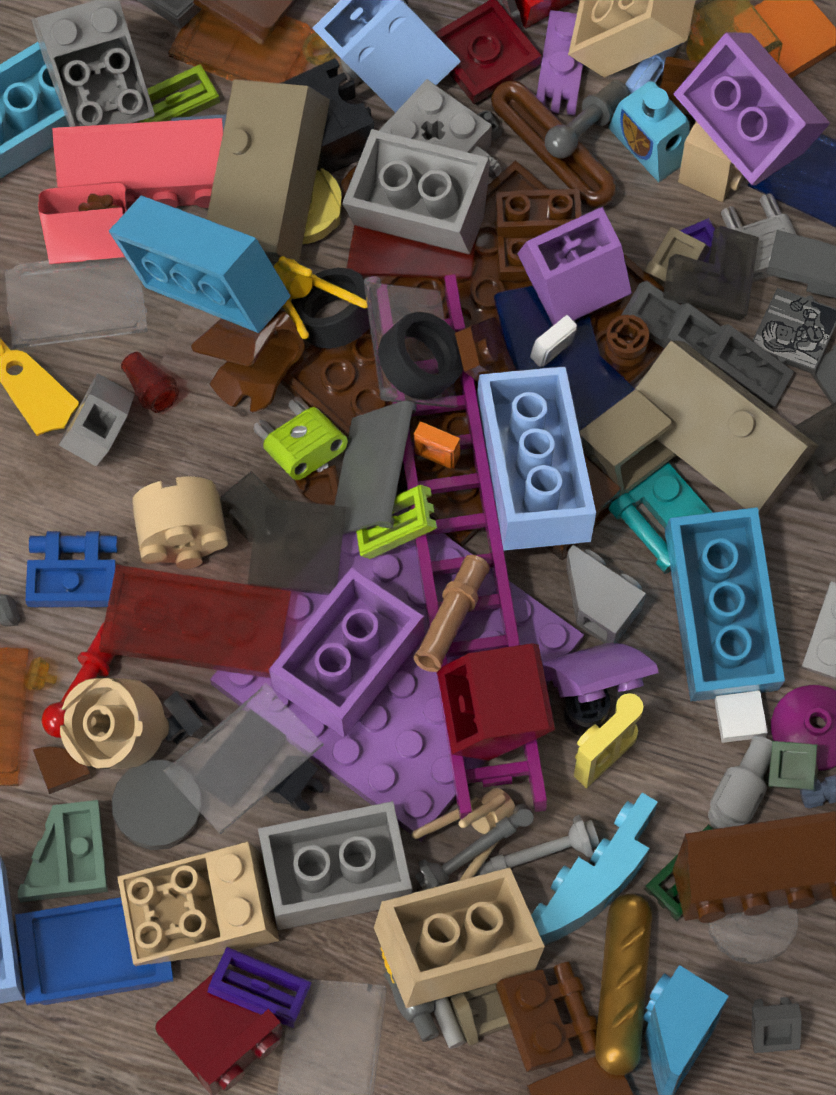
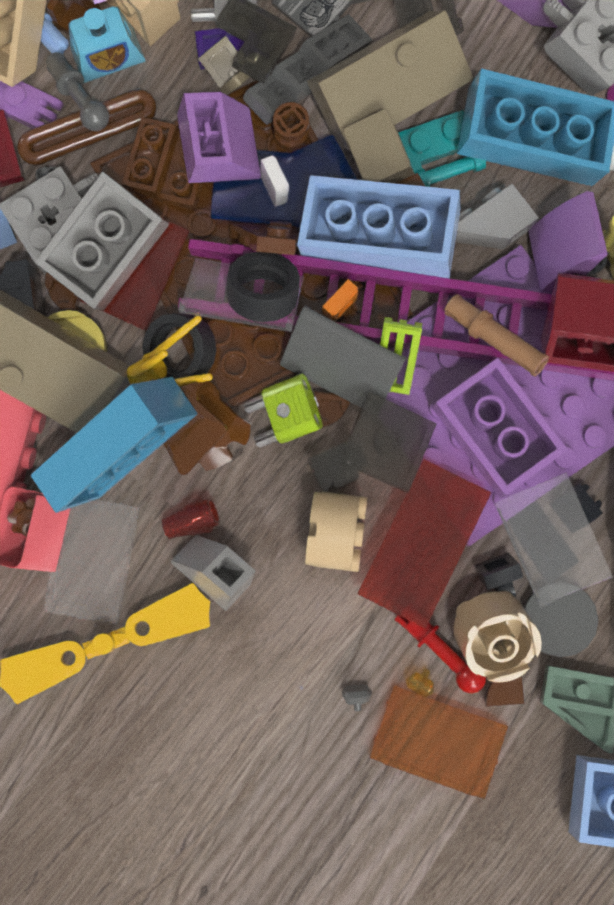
camera: 70 degrees left, 15 degrees up
(70, 582) = (350, 635): blue plate -> none

